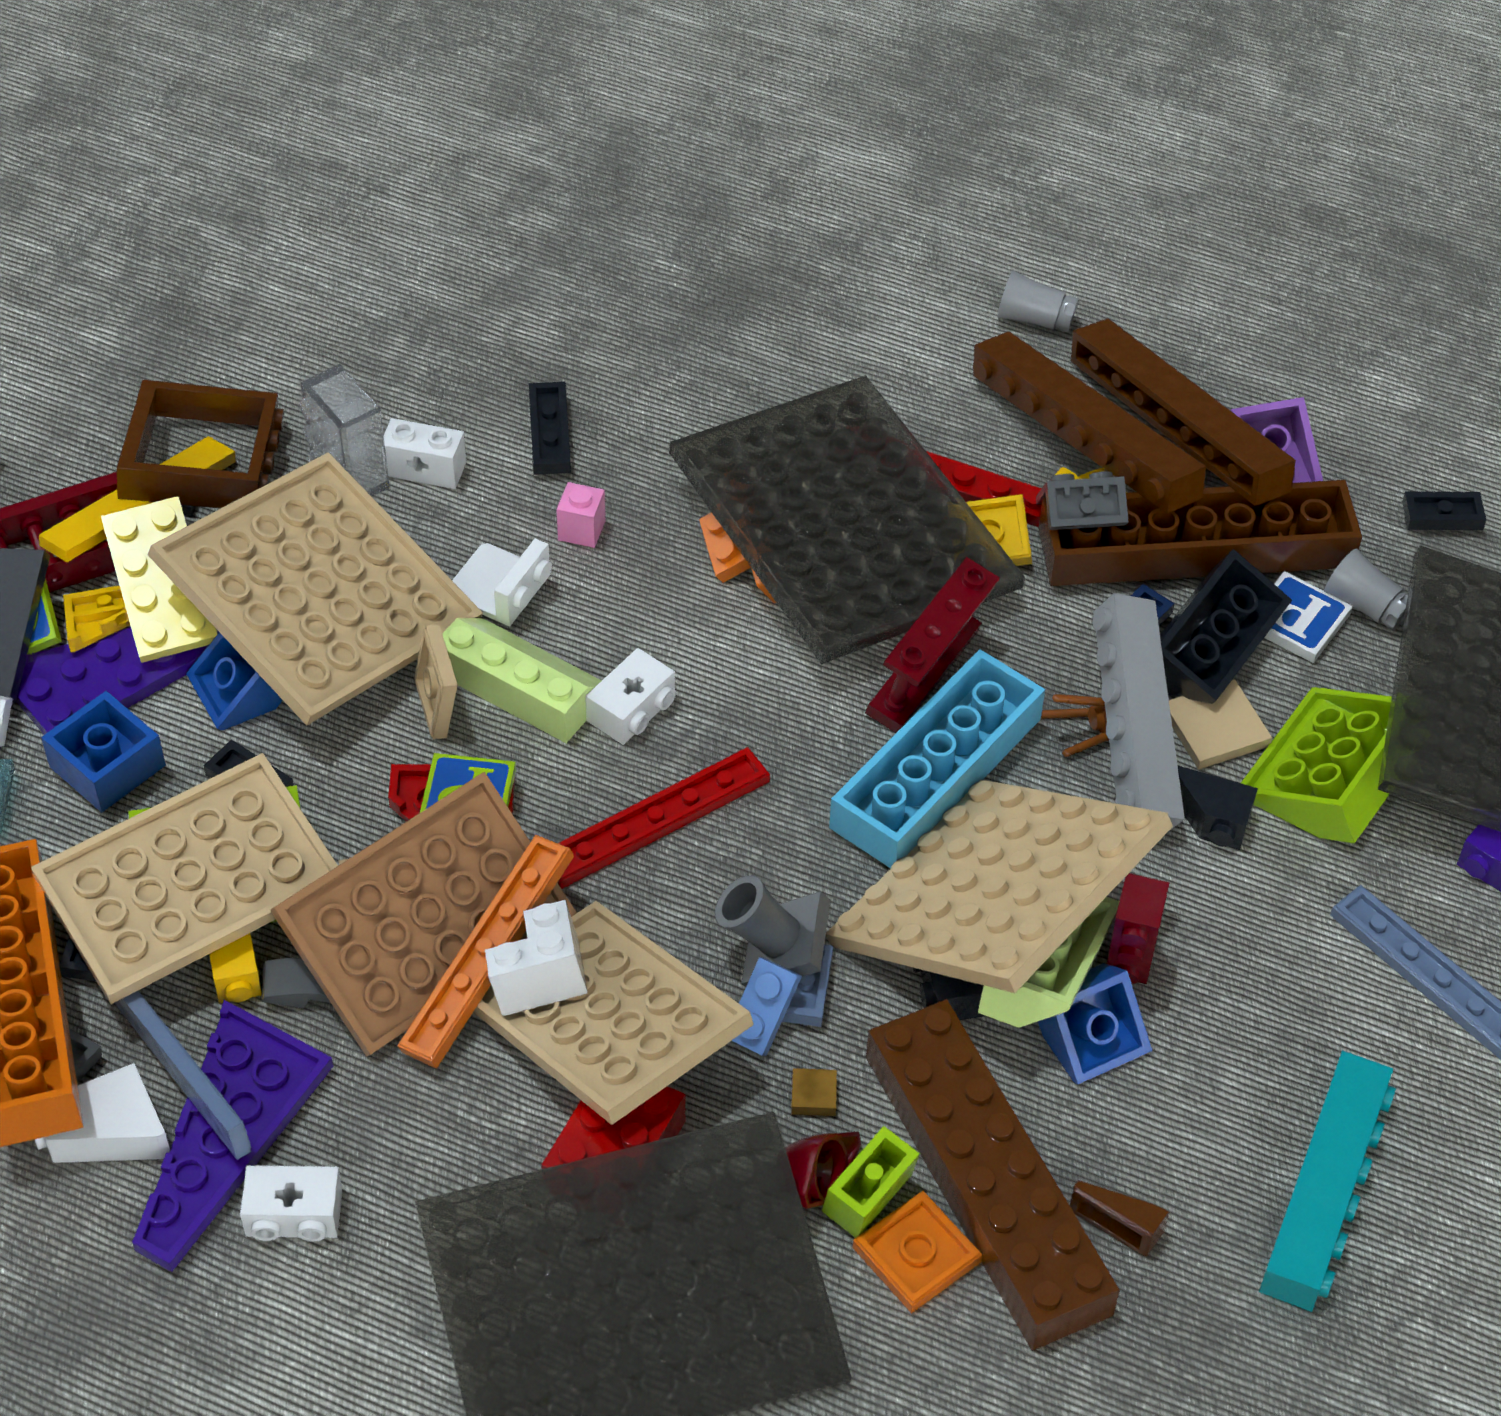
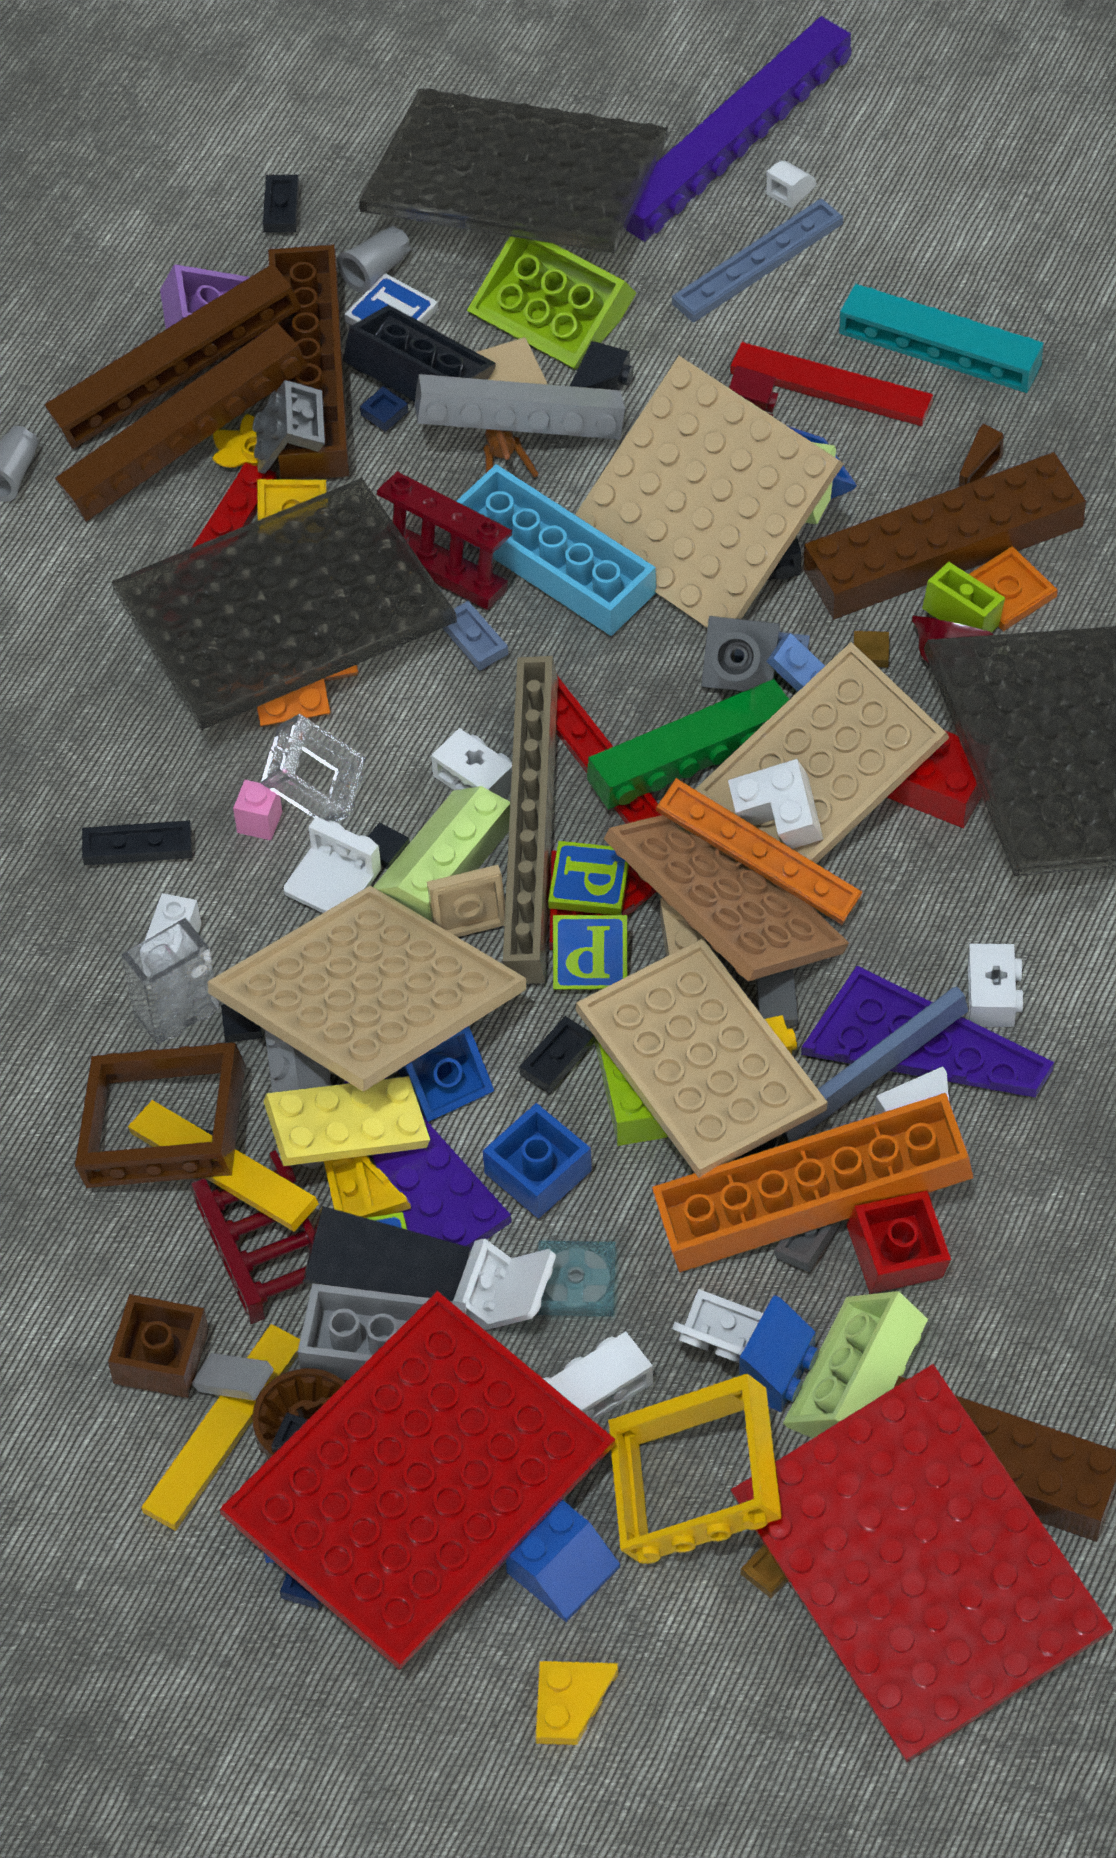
camera: 85 degrees left, 5 degrees up
(372, 799) = (589, 951): none -> tile
(540, 627) = (390, 843): none -> black tile
(555, 737) = (531, 818): none -> dark tan brick
(591, 586) = (280, 776): none -> clear window
(651, 884) = (682, 746): none -> green brick
(821, 696) = (476, 637): none -> sand blue plate
(1240, 1061) = (836, 384): none -> red tile

